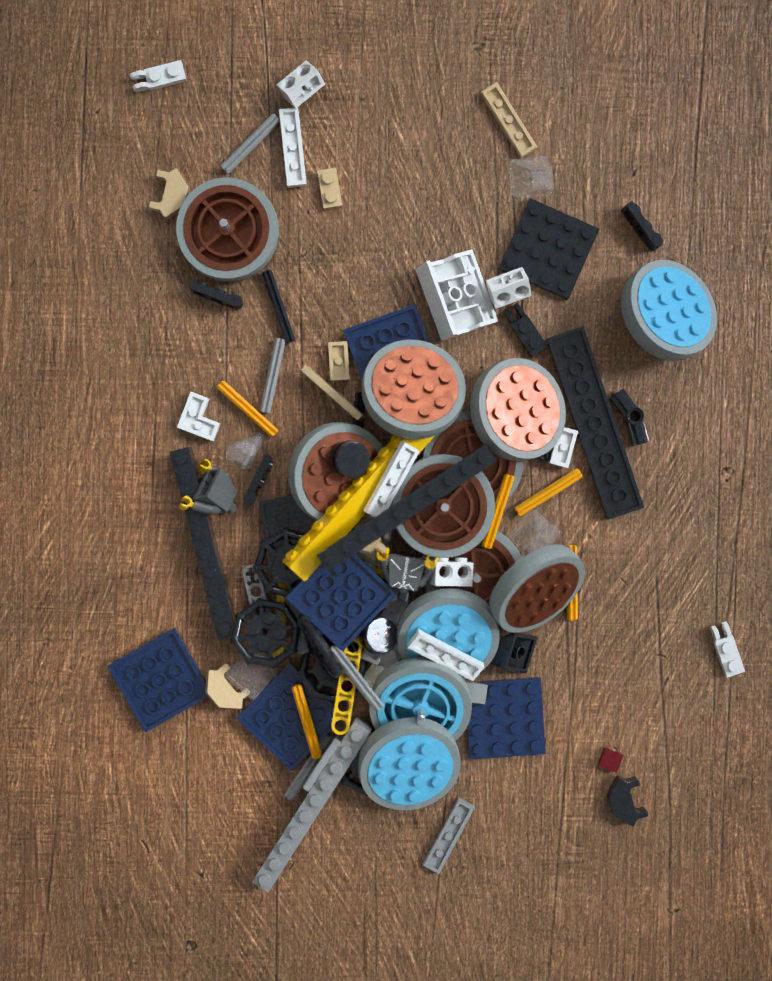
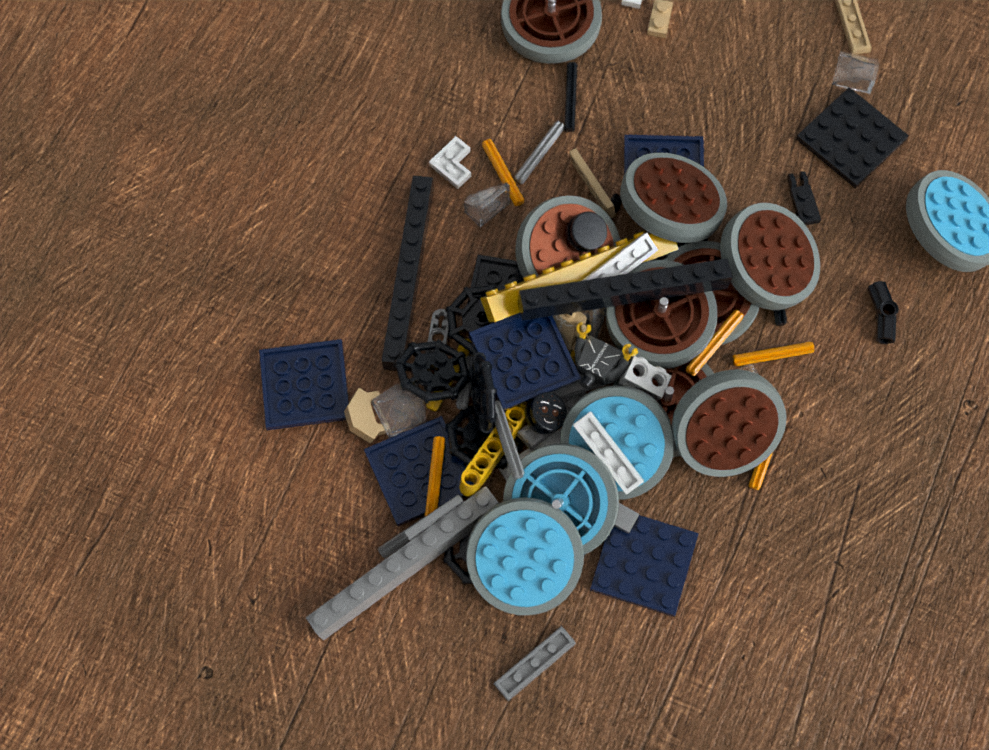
camera: 25 degrees right, 20 degrees down
(214, 493) = (438, 227): dark grey torso -> none
(218, 295) = (516, 66): black hinge -> none
(258, 479) = (486, 234): black hinge -> none
(338, 361) = (608, 161): tan plate -> none
(456, 294) = (746, 144): white piece -> none
(508, 287) = (801, 147): white brick -> none
(515, 652) = (680, 493): black slope -> none
(563, 449) = (803, 316): white plate -> none
(595, 423) = (844, 308): black plate -> none
(610, 759) = (744, 651): dark red tile -> none
(621, 800) = (741, 700): black piece -> none
(642, 226) = (951, 146): black hinge -> none
(727, 651) = (913, 585): white hinge -> none

